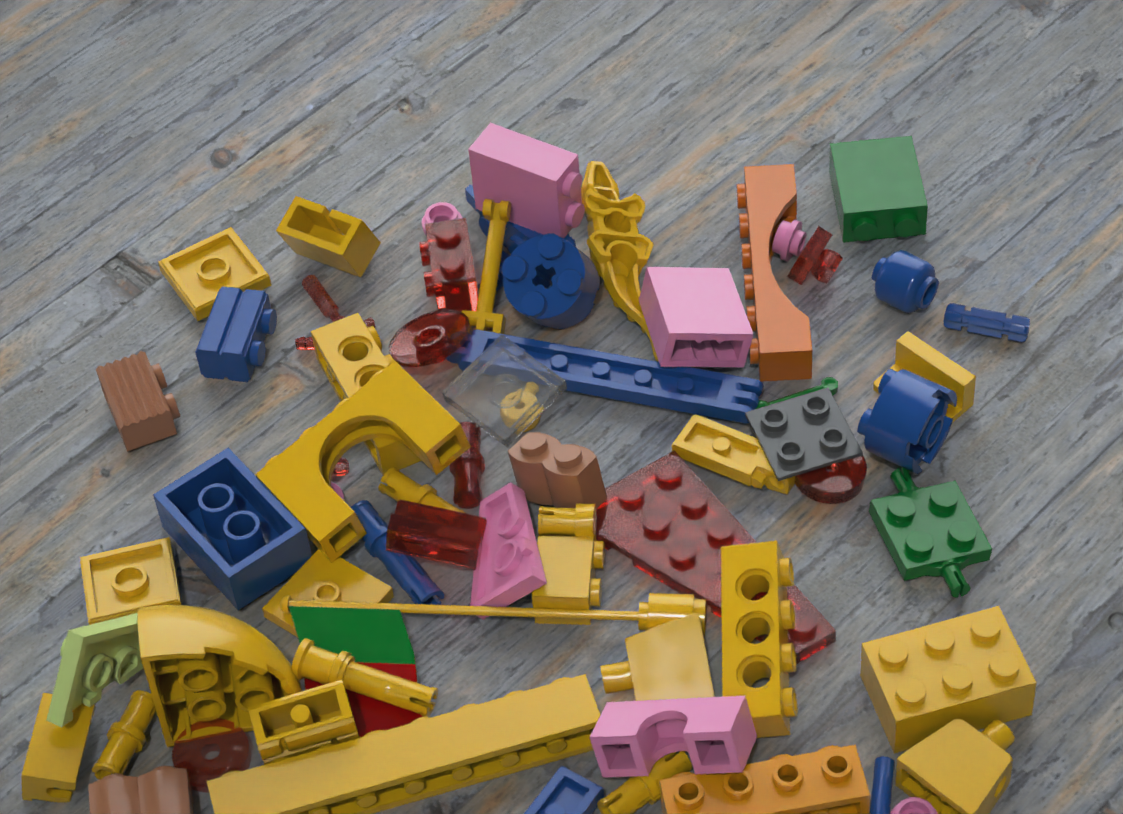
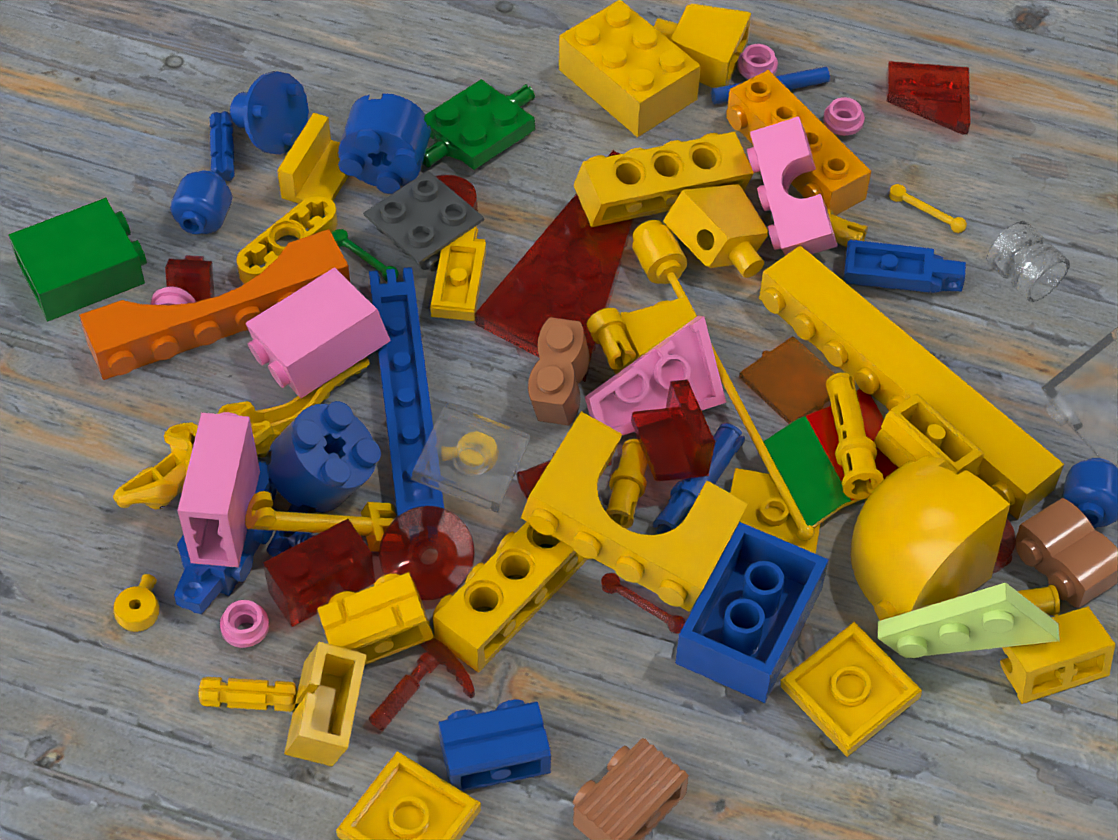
camera: 120 degrees left, 5 degrees up
(385, 206) = (247, 693): none -> yellow axle
(385, 286) = (377, 618): none -> yellow brick
(469, 676) = (789, 380): none -> clear orange piece
(840, 359) = (293, 224): none -> yellow beam
(995, 349) = (272, 112): none -> blue piece

